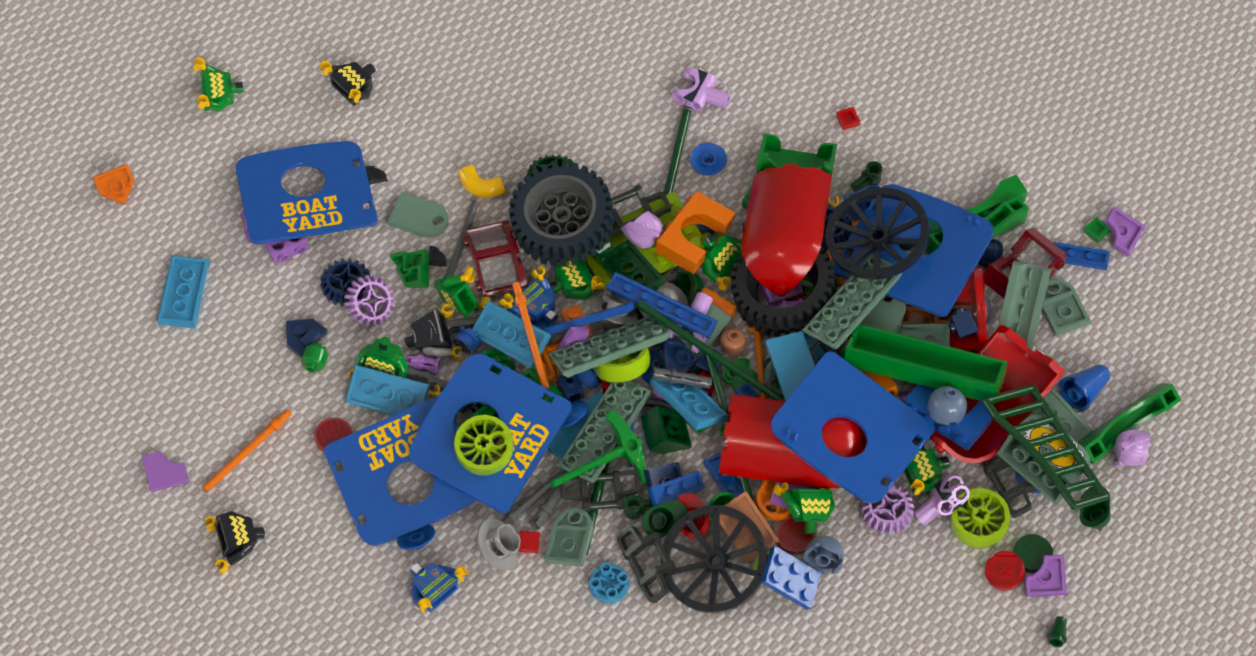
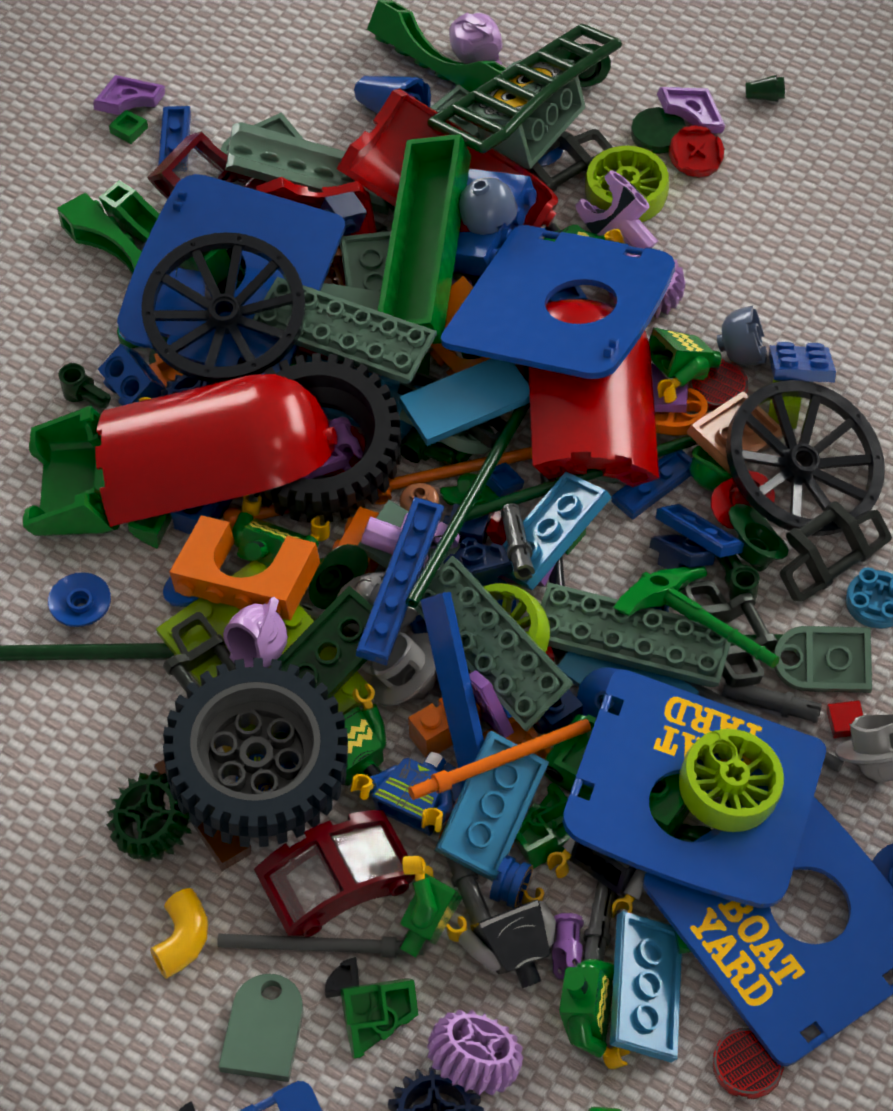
camera: 100 degrees left, 5 degrees down
(665, 431) = (602, 567): dark green slope -> none

